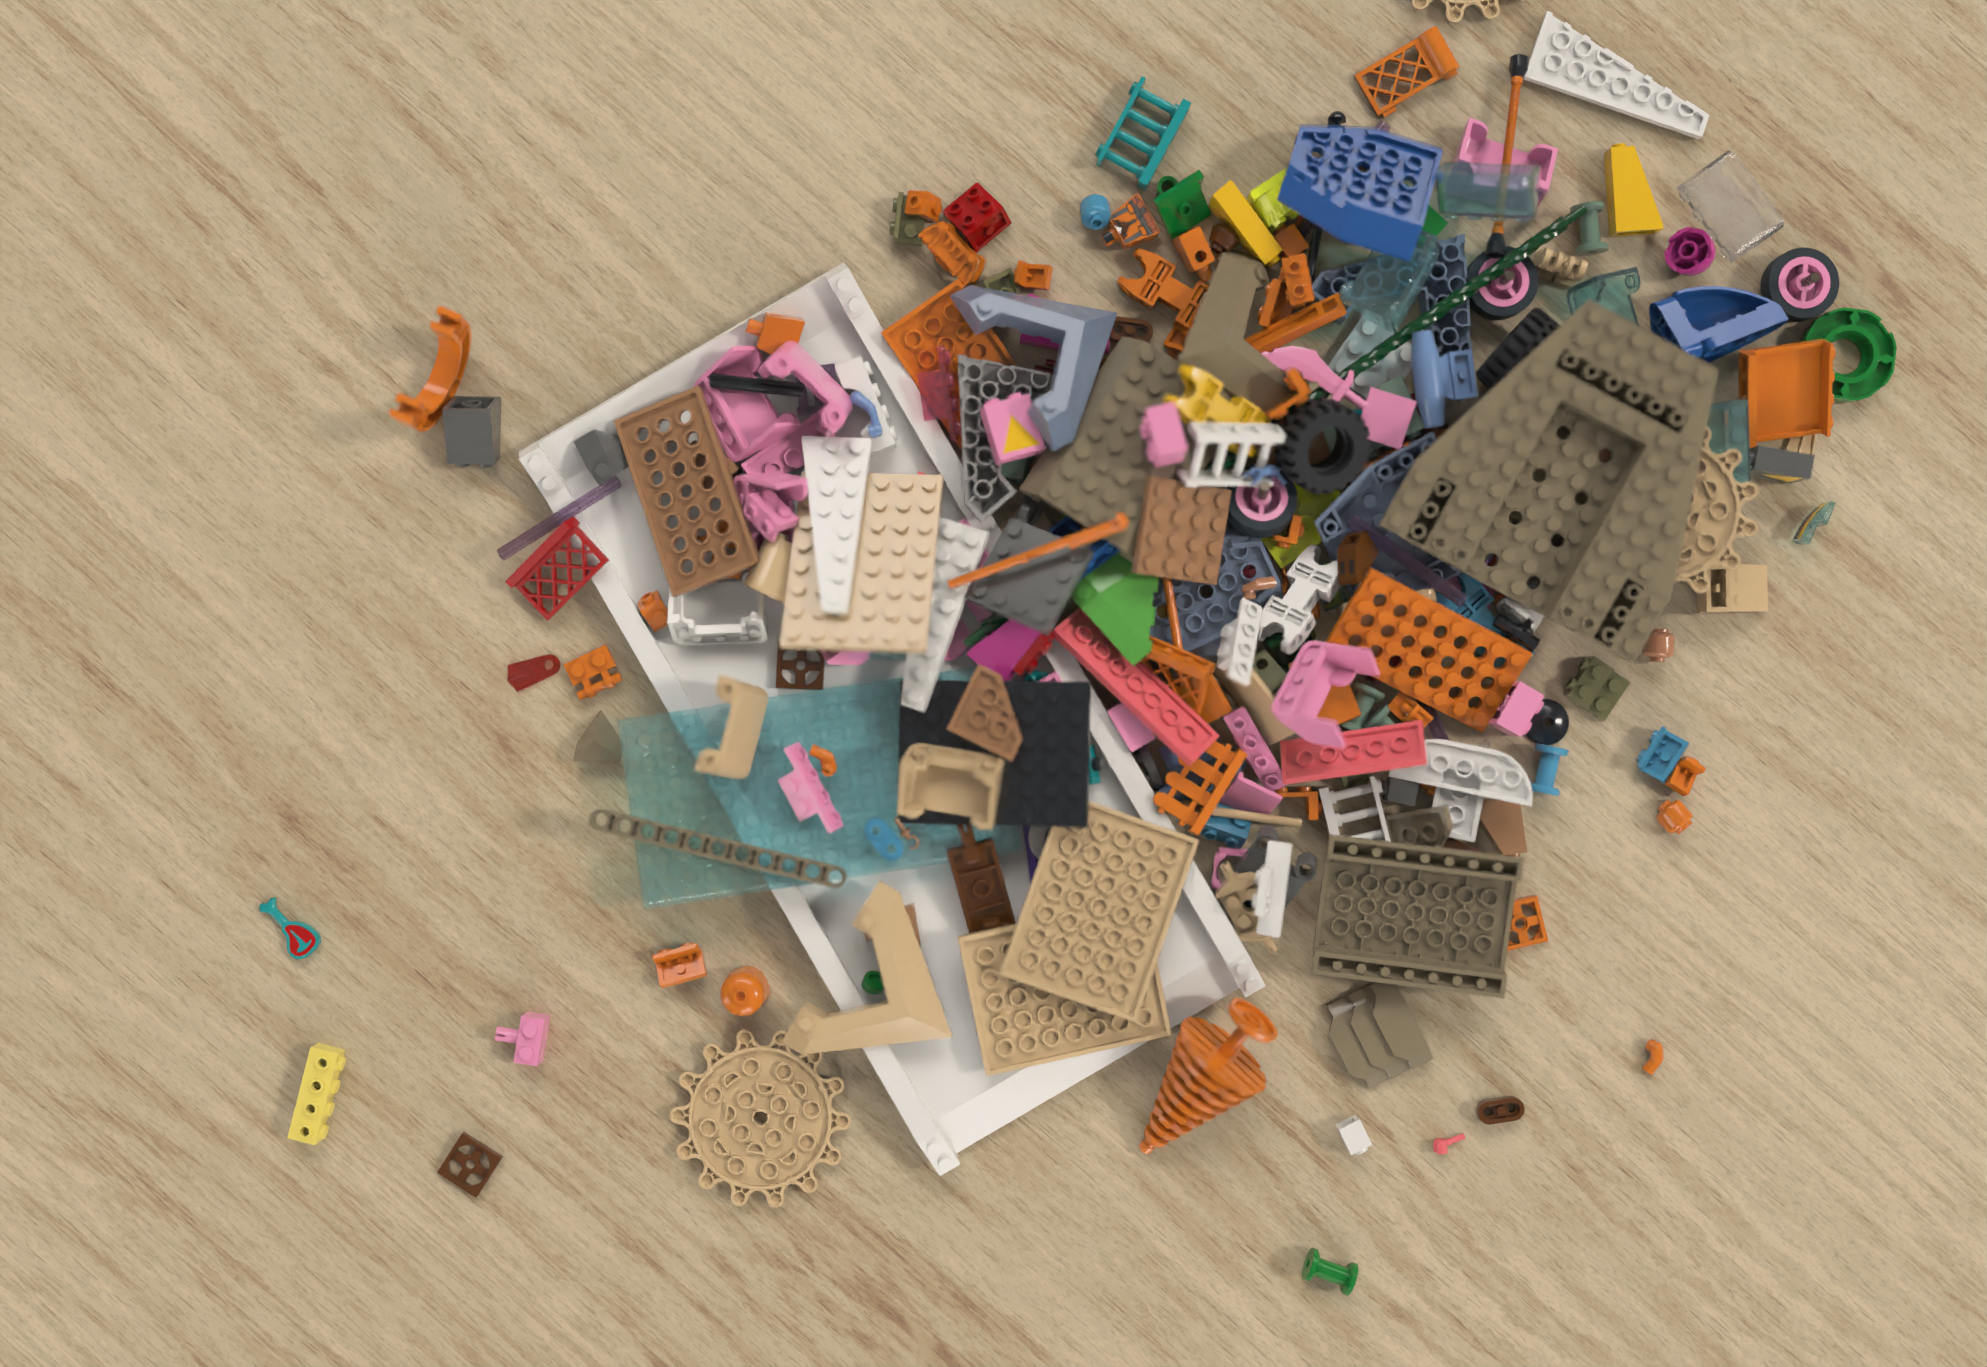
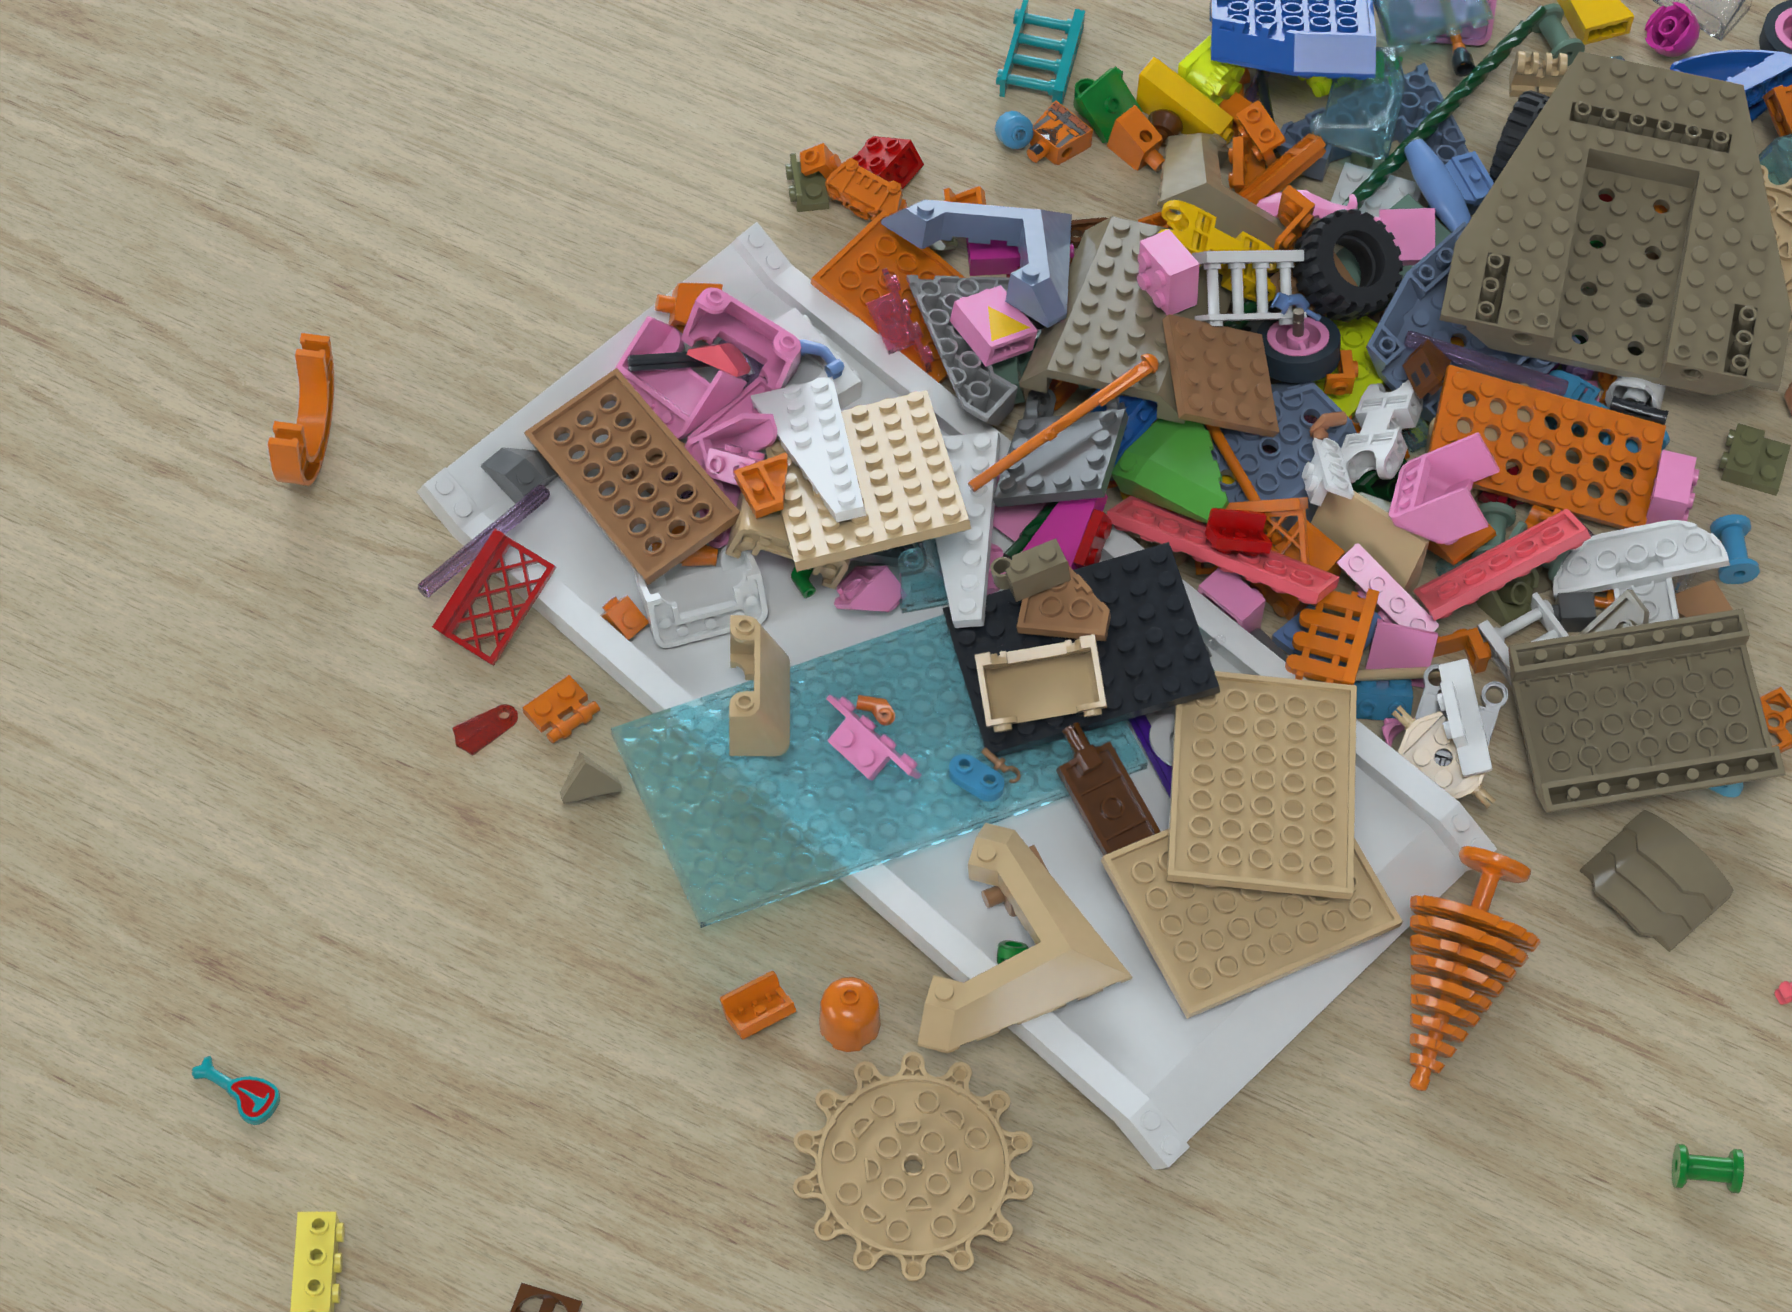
camera: 15 degrees left, 30 degrees down
(472, 430) = (355, 486): dark grey slope -> none
(528, 1039) = (583, 1138): bright pink brick -> none
(706, 849) = (763, 832): dark tan beam -> none
(780, 551) = (764, 484): none -> orange wing
(781, 682) = (811, 617): reddish brown piece -> none
(785, 399) = (723, 357): none -> coral slope
(970, 690) = (1031, 570): none -> dark tan hinge
(1149, 682) = (1237, 531): none -> red bracket
(1166, 290) = (1111, 185): orange piece -> none
(1353, 1135) = (1672, 1002): white brick -> none
(1507, 293) = (1488, 107): wheel -> none
(1559, 724) = (1704, 513): black dish -> none

